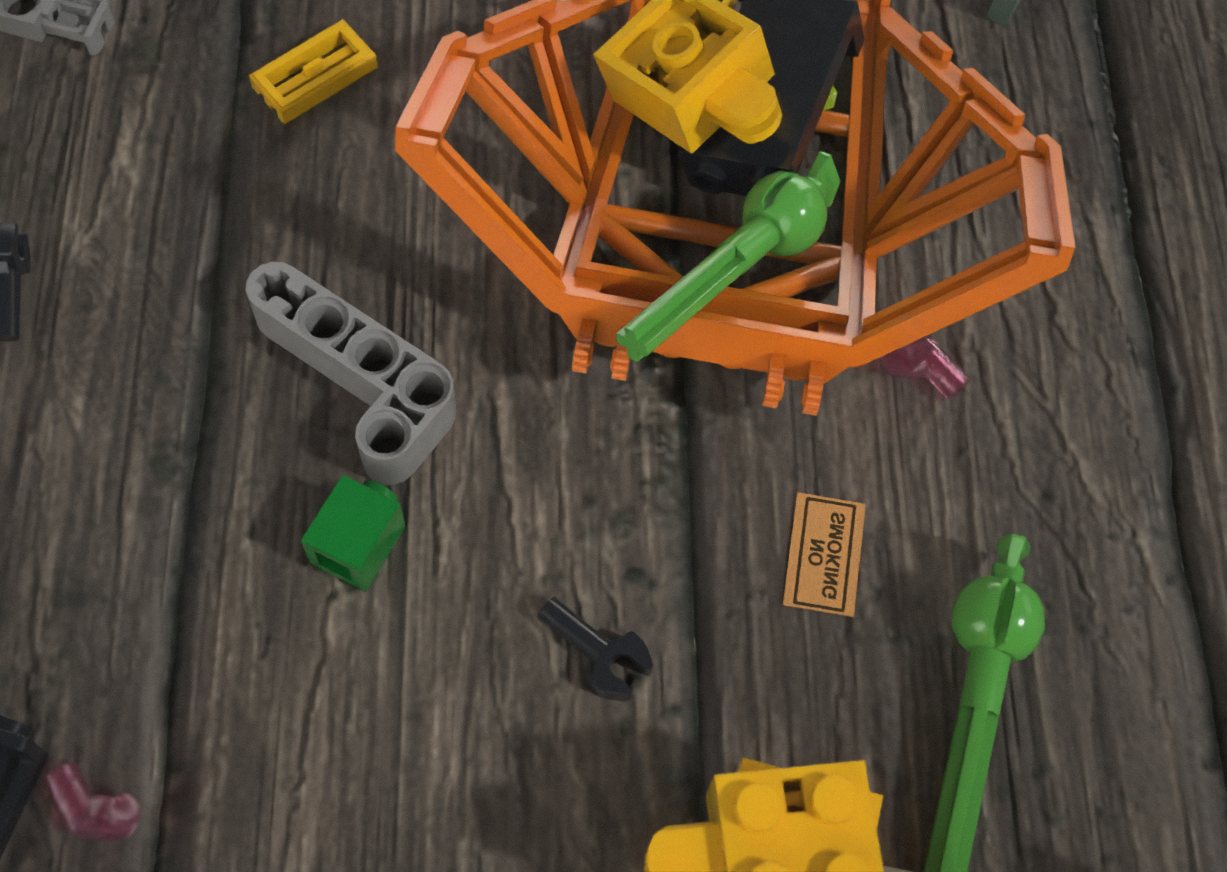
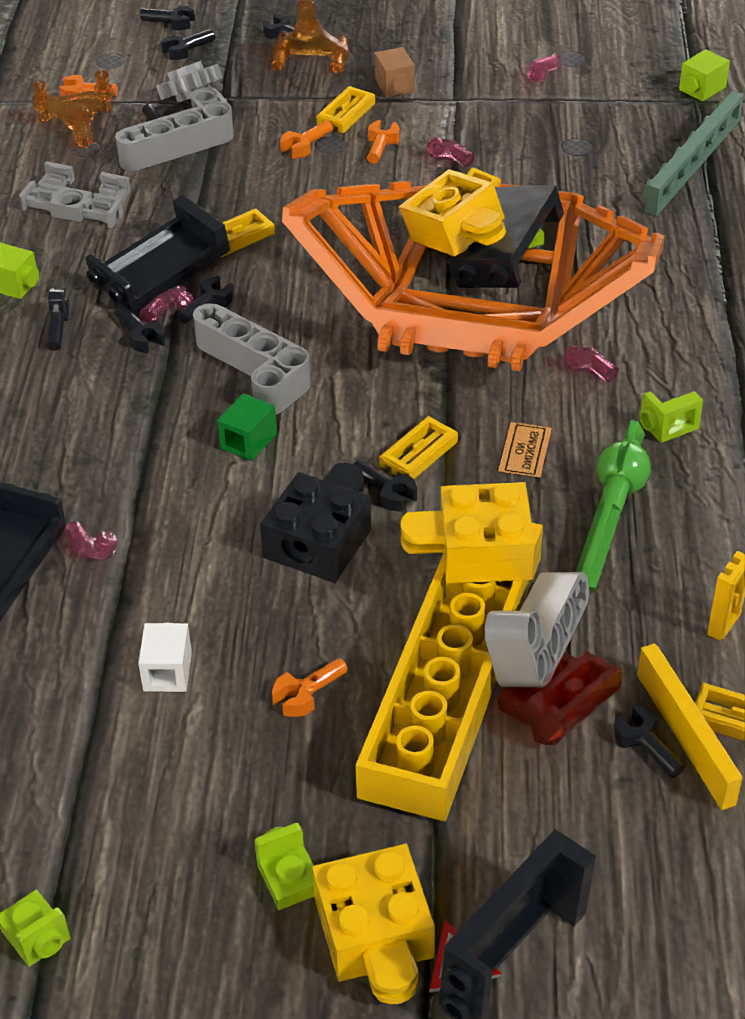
camera: 10 degrees right, 20 degrees down
(157, 298) = (140, 331): none -> black bar
(181, 140) = (161, 257): none -> black panel
(194, 233) = (163, 301): none -> clear pink arm
(271, 222) = (210, 294): none -> black bar
(484, 755) = (318, 522): none -> black brick
(616, 605) = (424, 451): none -> yellow tile
(779, 217) = (504, 282): bright green piece -> none
(1065, 494) = (672, 417): none -> lime bracket

